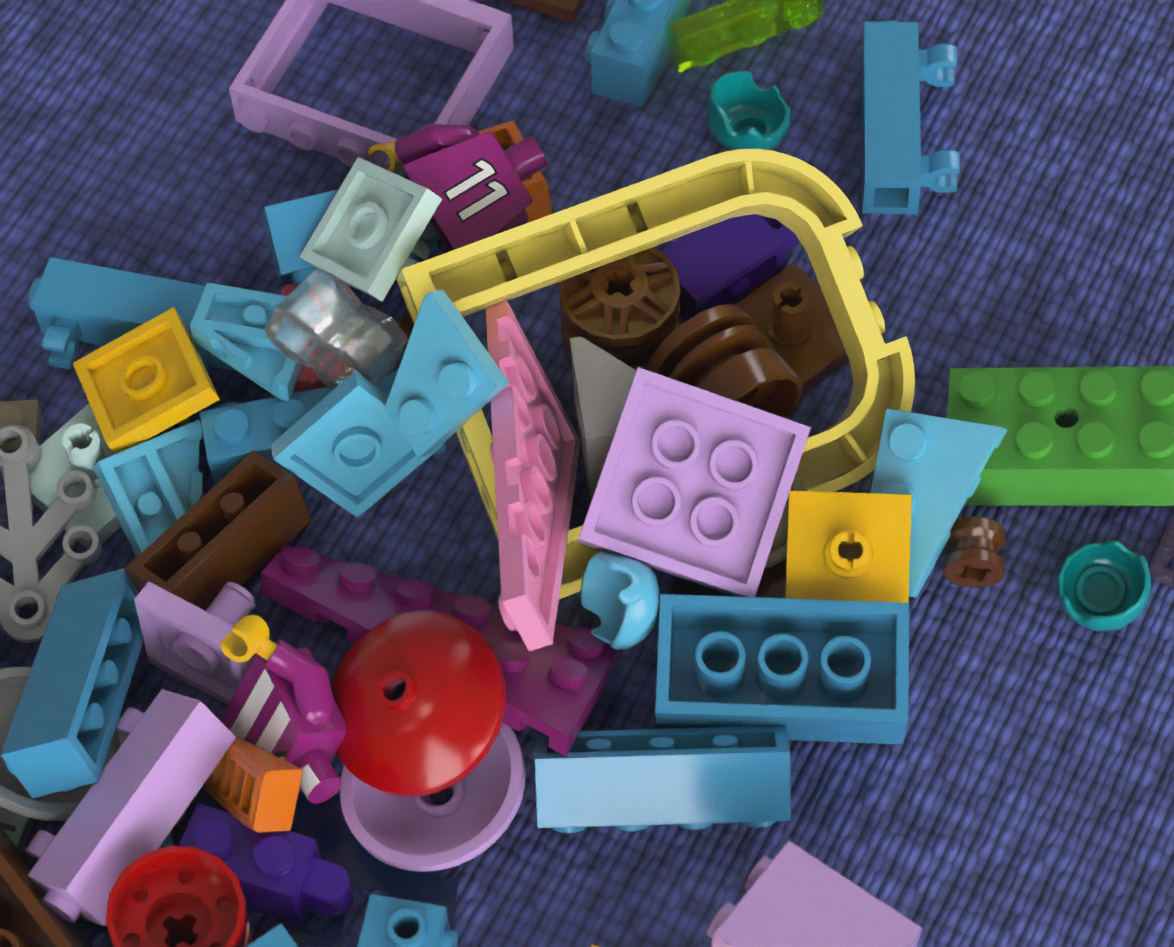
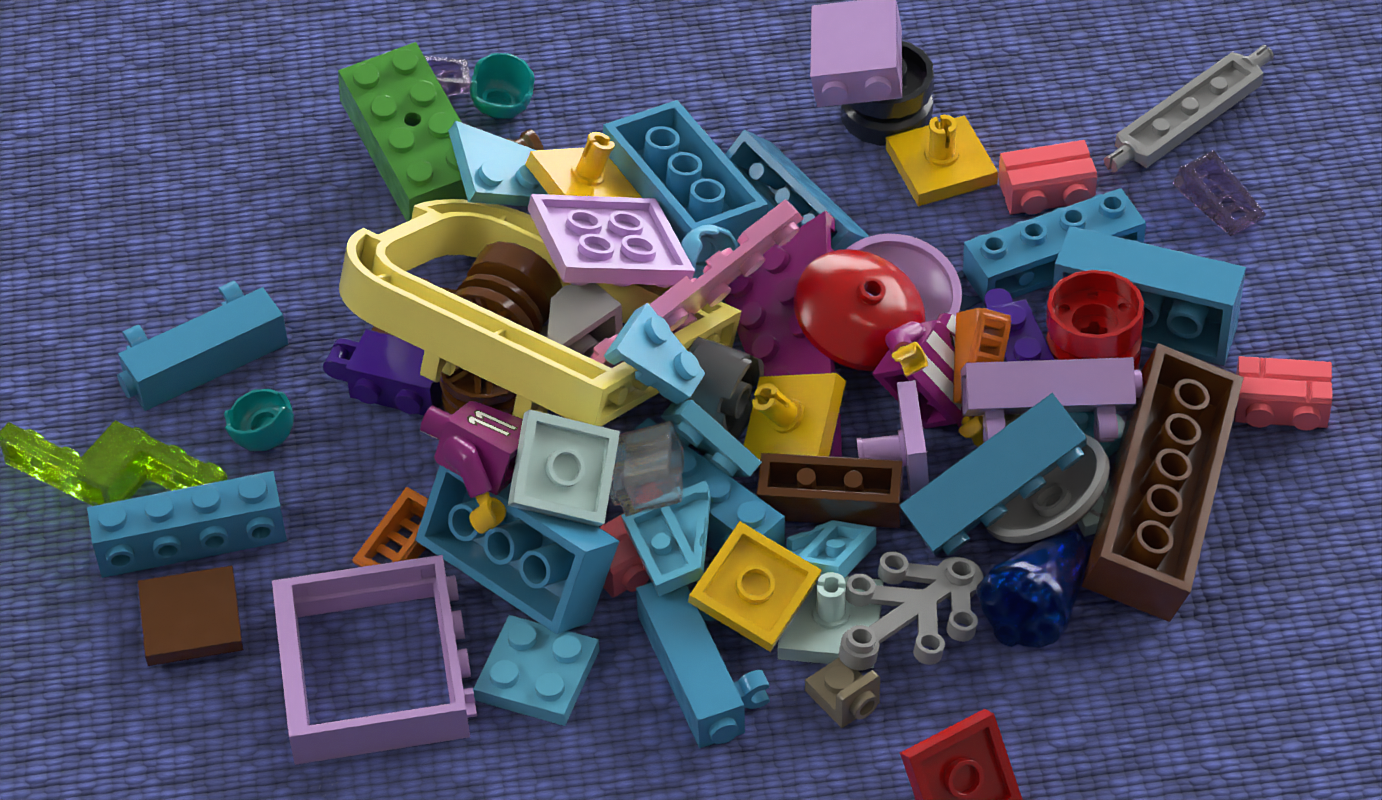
camera: 125 degrees left, 10 degrees down
(236, 190) = (536, 670): none -> medium azure plate
(333, 554) = (795, 414): none -> yellow tile
(435, 510) = (726, 383): none -> dark grey brick

